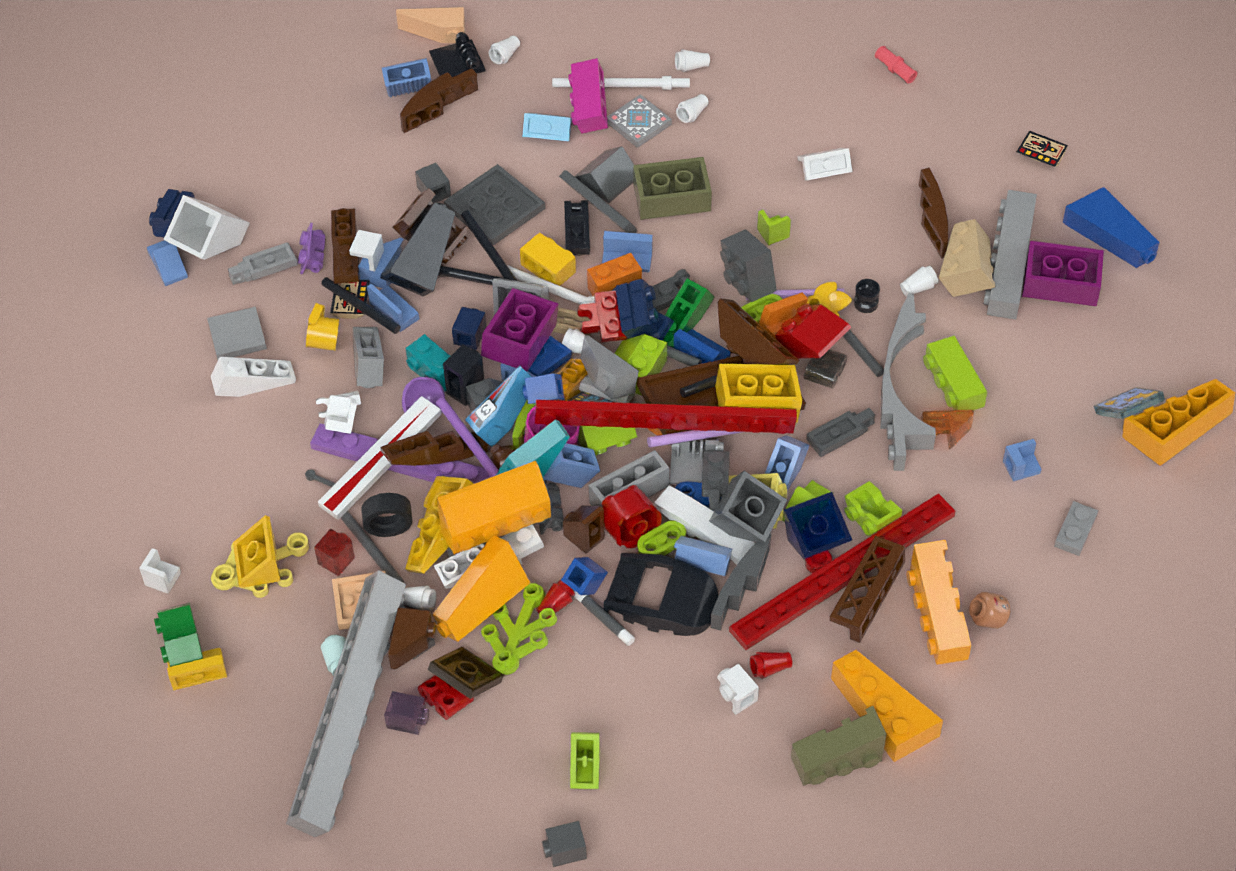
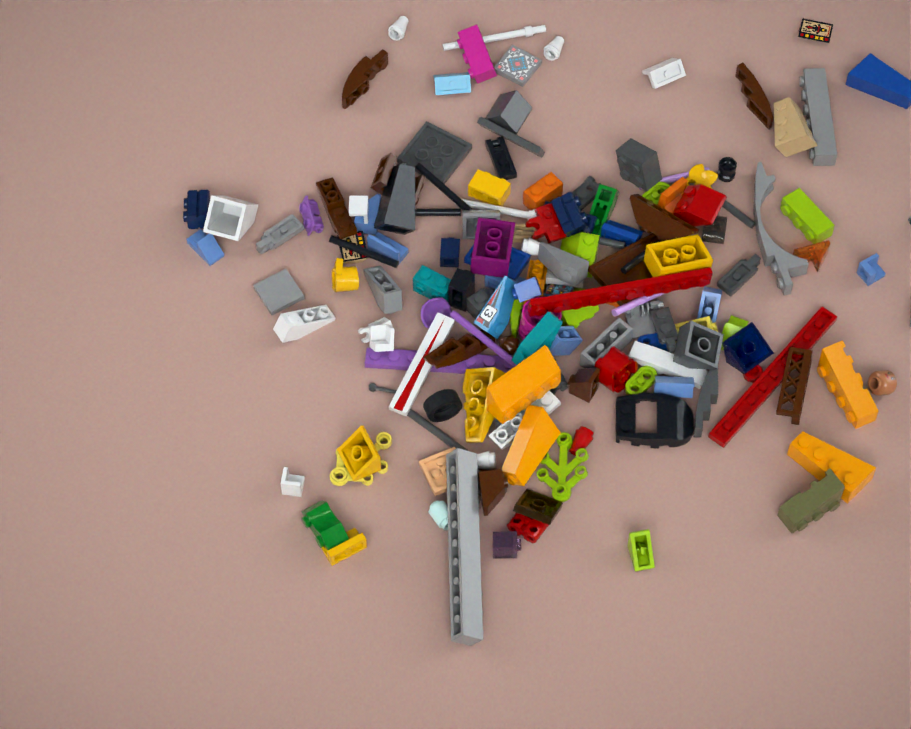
camera: 15 degrees left, 5 degrees up
(334, 551) = (413, 440): clear red brick -> none
(406, 77) = (335, 65): medium blue brick -> none
(432, 23) = (339, 17): light nougat slope -> none
(435, 179) = (383, 144): dark grey brick -> none
(457, 57) = (365, 42): black hinge -> none
(564, 844) = (646, 610): dark grey brick -> none
(584, 576) = (597, 419): blue brick -> none
(605, 618) = (617, 445): dark grey bar -> none
(622, 243) = (540, 166): medium blue panel -> none
(672, 188) = (562, 115): olive brick -> none
(691, 60) = (540, 10): white cone -> none
(738, 688) = (728, 475): white brick -> none
(768, 663) = (741, 454): red cone -> none
(774, 228) = (643, 131): lime panel -> none
(870, 508) = (779, 328): lime cylinder -> none
(920, 281) = (760, 150): white cone -> none
(1063, 273) = (861, 124): magenta brick -> none

